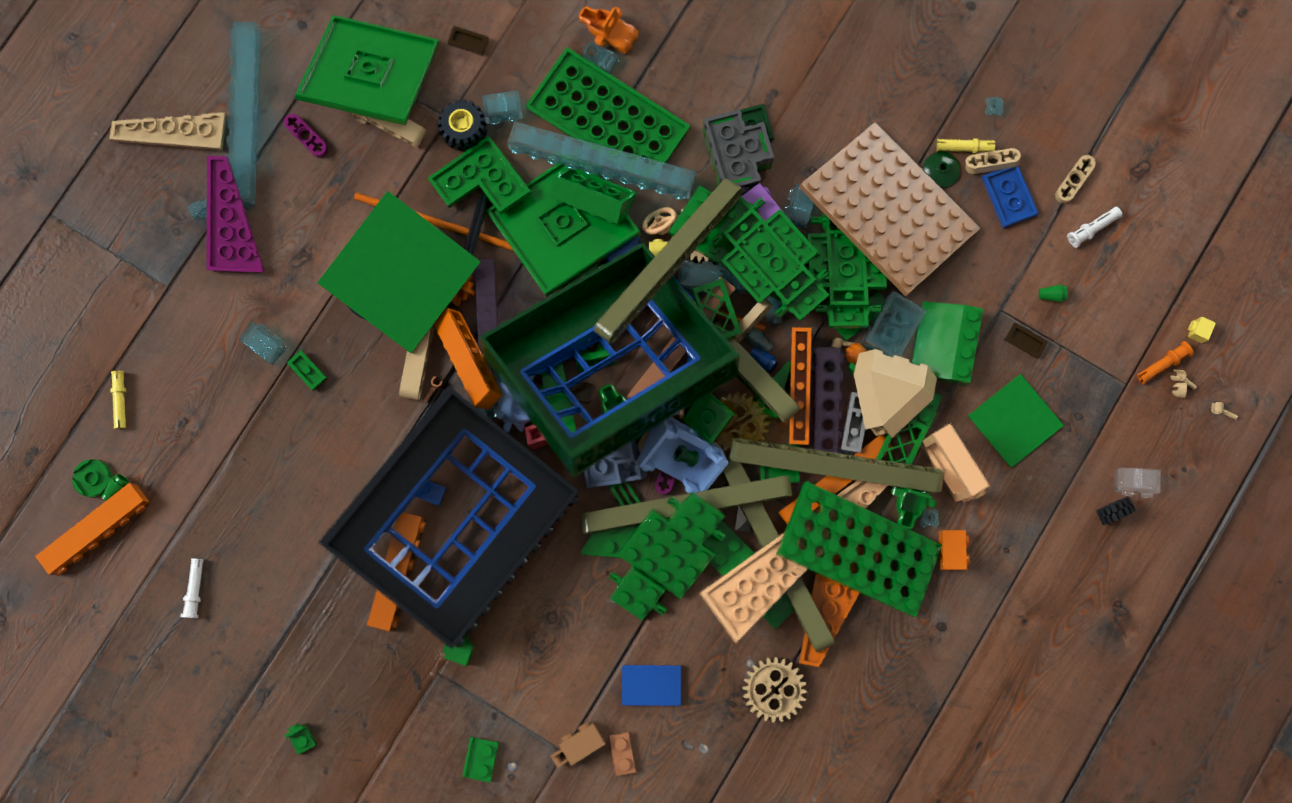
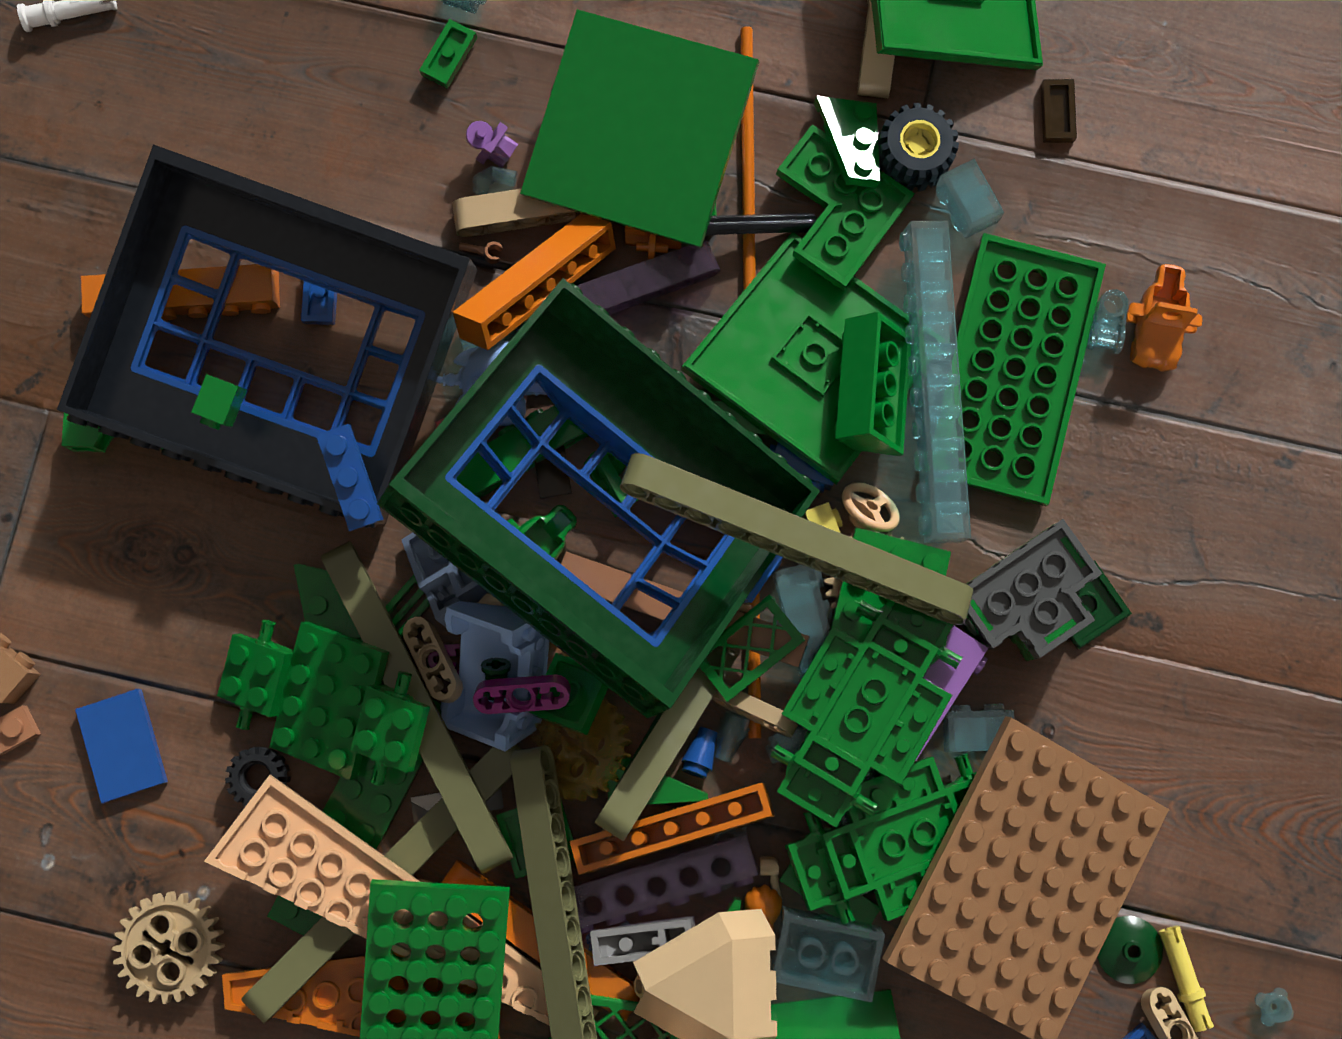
camera: 70 degrees right, 0 degrees up
(373, 361) = (494, 144): none -> medium lavender hips
(390, 369) = (493, 175): none -> clear light blue arm
(444, 156) = (854, 137): none -> green wing
(482, 552) = (218, 402): none -> green brick
(549, 494) = (349, 477): none -> blue plate
(648, 487) = (444, 667): none -> tan beam
(683, 611) = (243, 762): none -> black tyre
(691, 455) = (531, 683): none -> magenta beam

